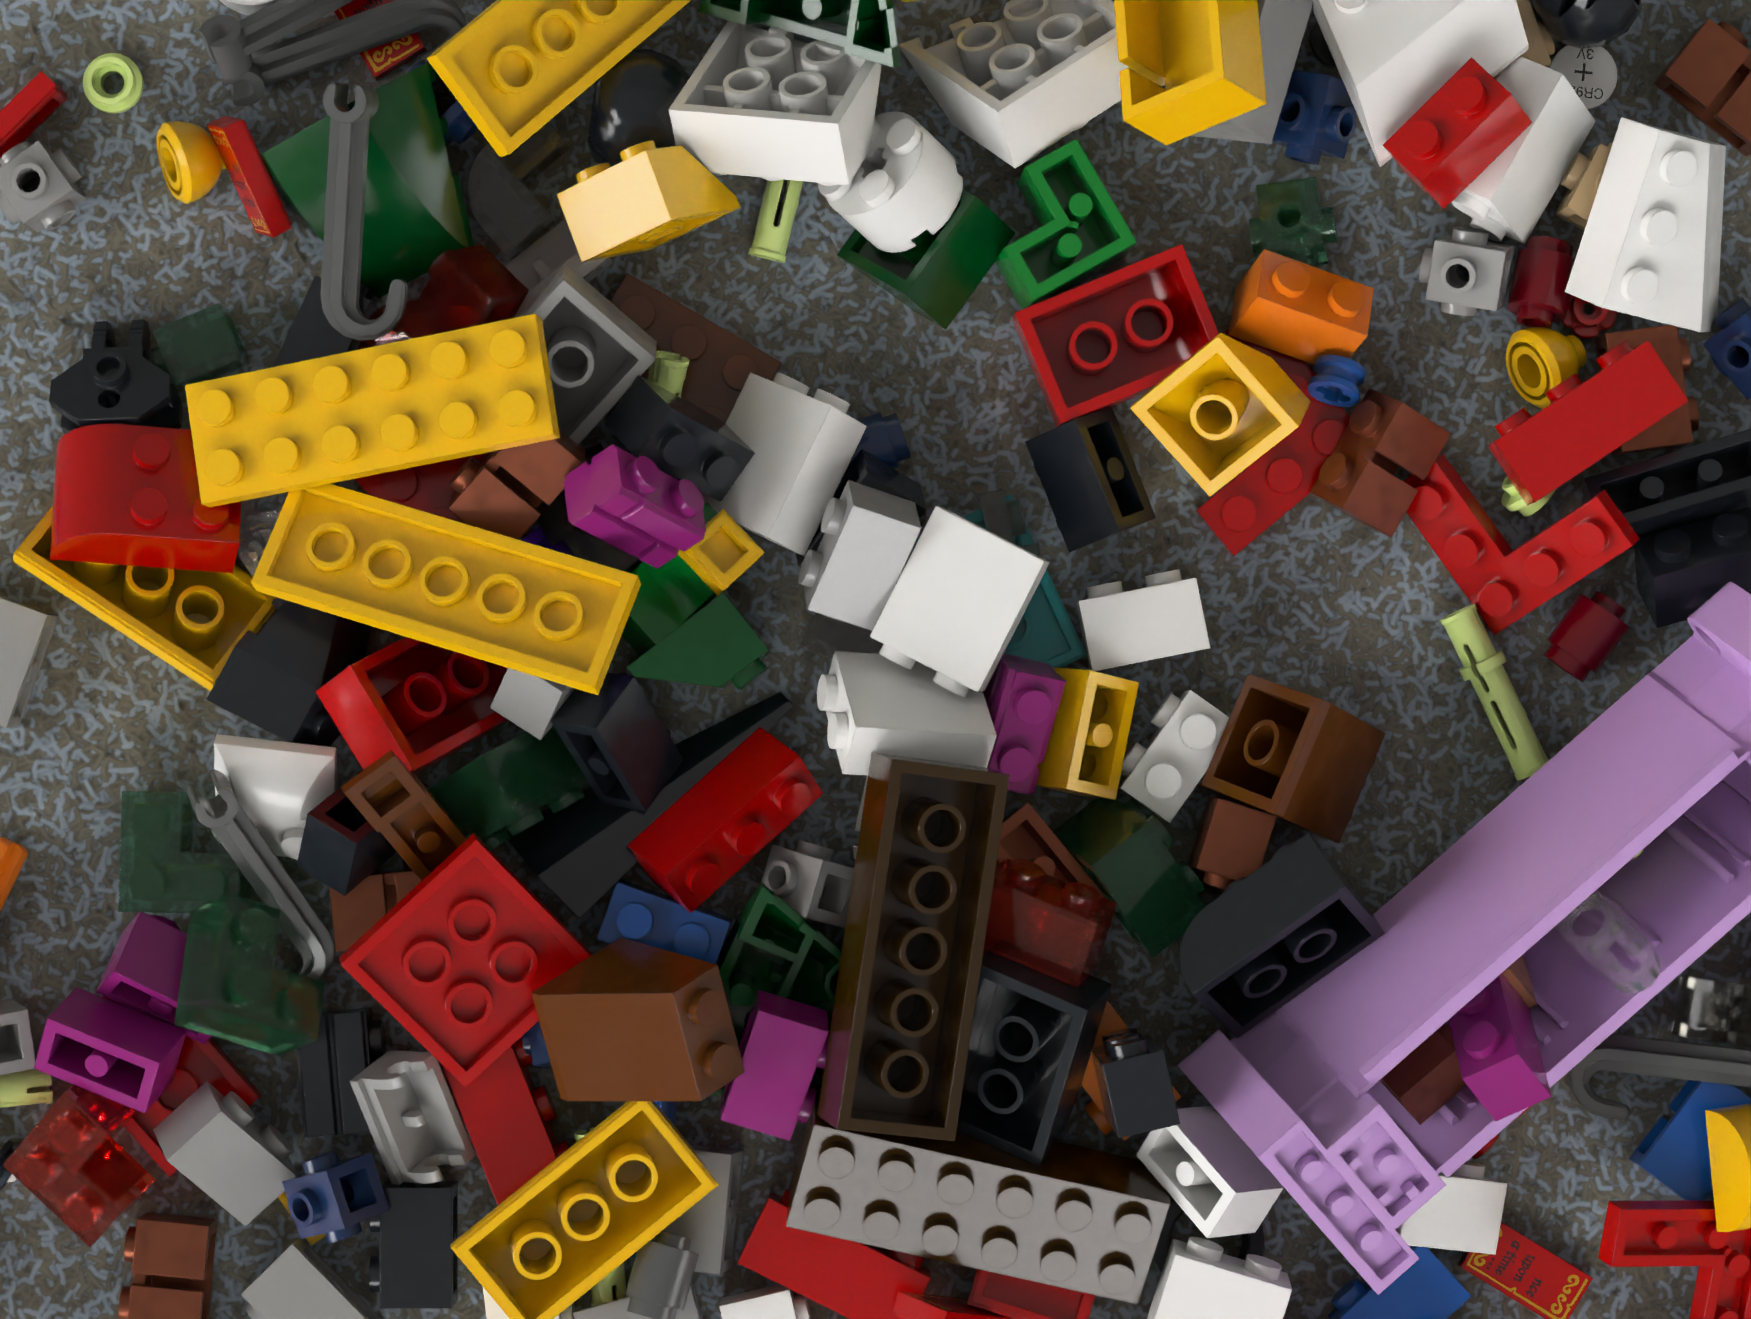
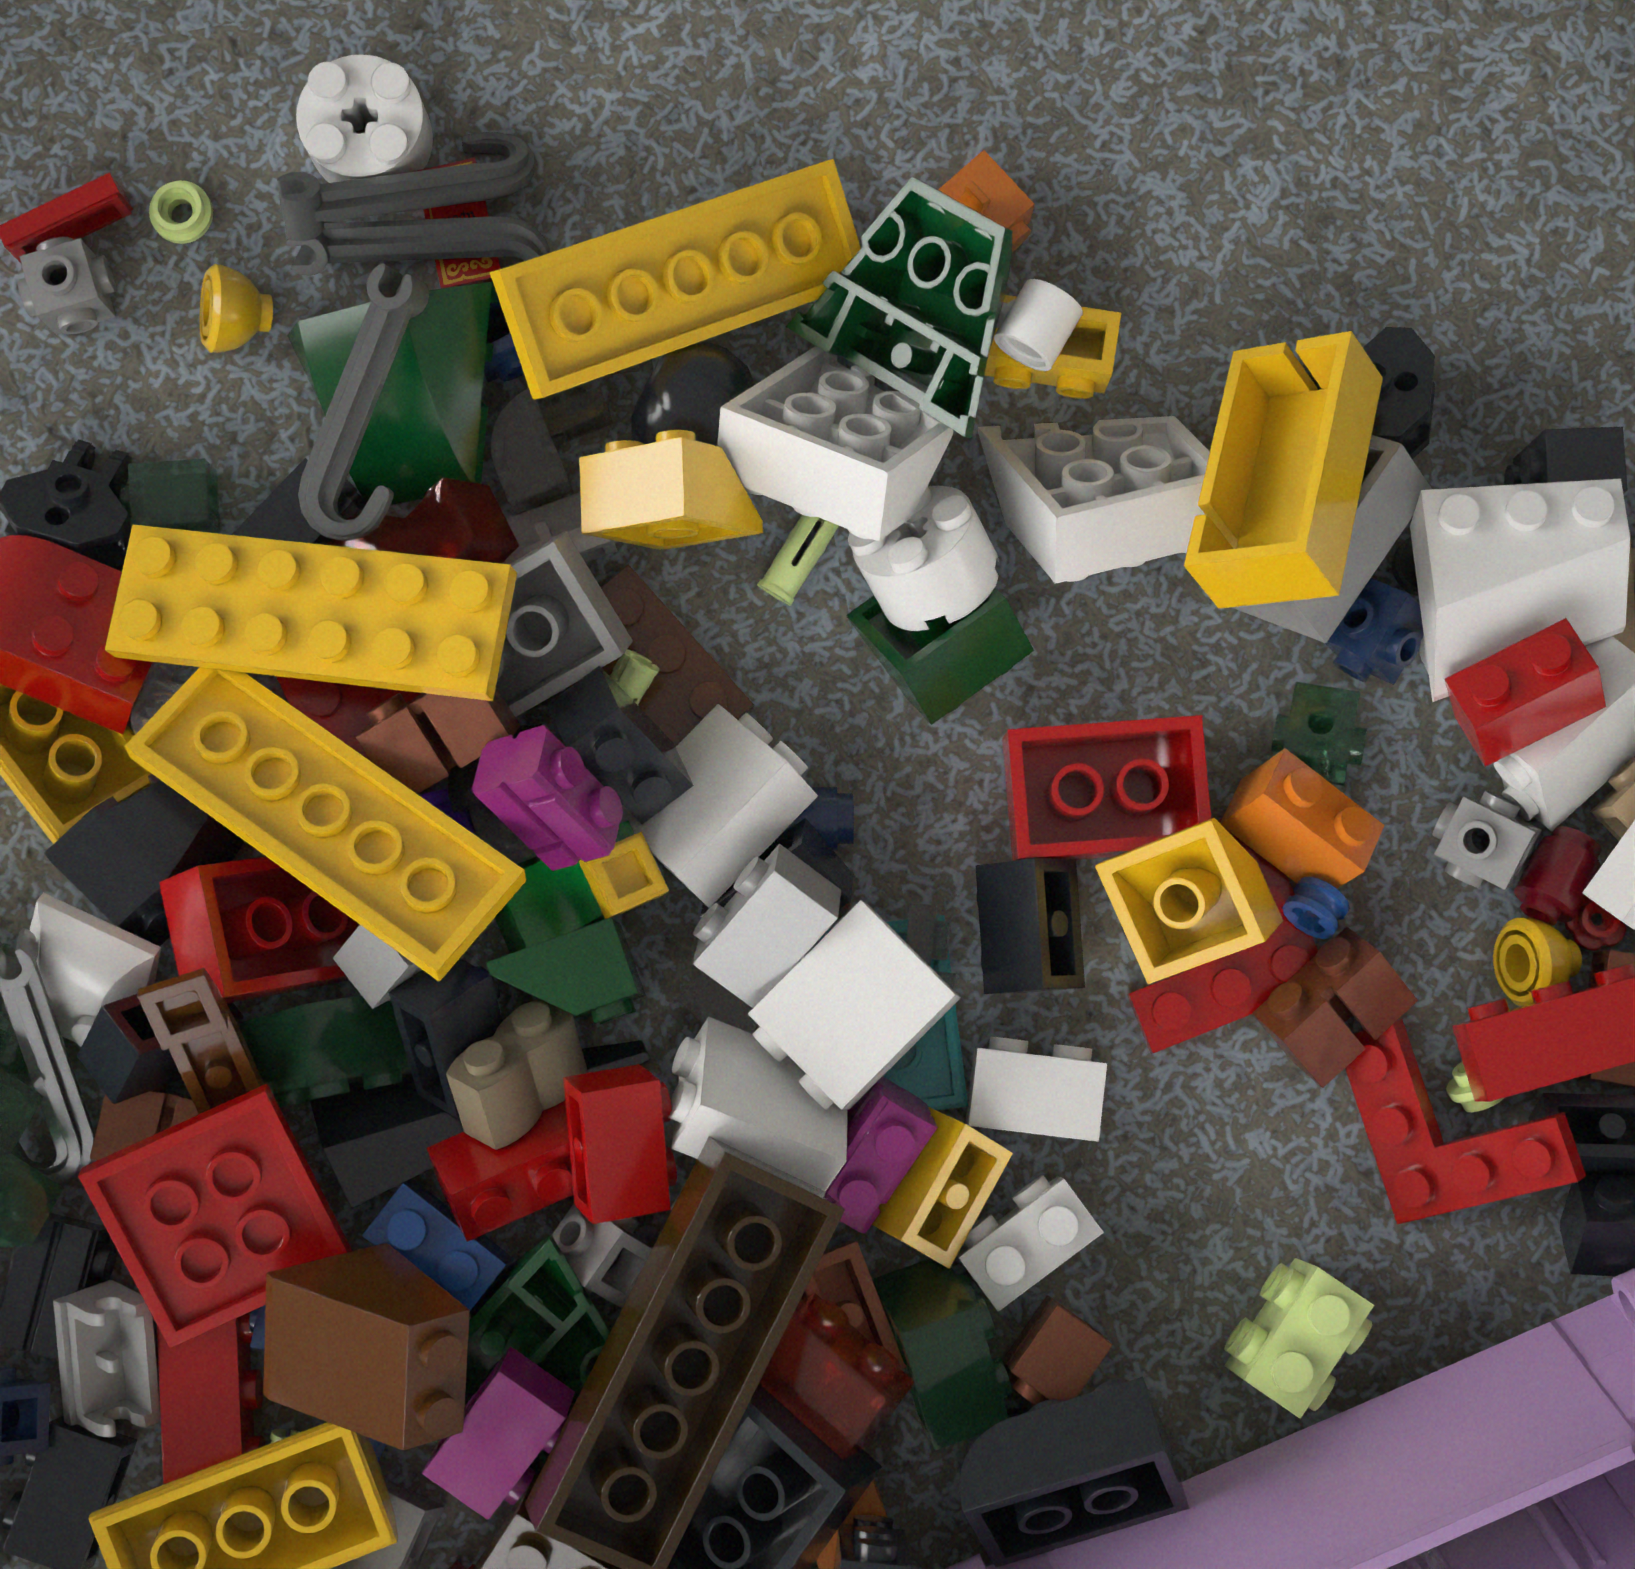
camera: 20 degrees right, 5 degrees down
(250, 176) = (281, 343): red tile -> none
(685, 754) = (516, 1073): none -> dark tan brick
(795, 784) = (619, 1143): none -> red brick
(1077, 231) = (1100, 664): green brick -> none
(1294, 757) = (1149, 1285): reddish brown slope -> none
(1436, 758) = (1298, 1336): none -> yellowish green brick
(1495, 691) = (1380, 1284): yellowish green pin -> none
(1586, 635) = (1493, 1256): dark red brick -> none

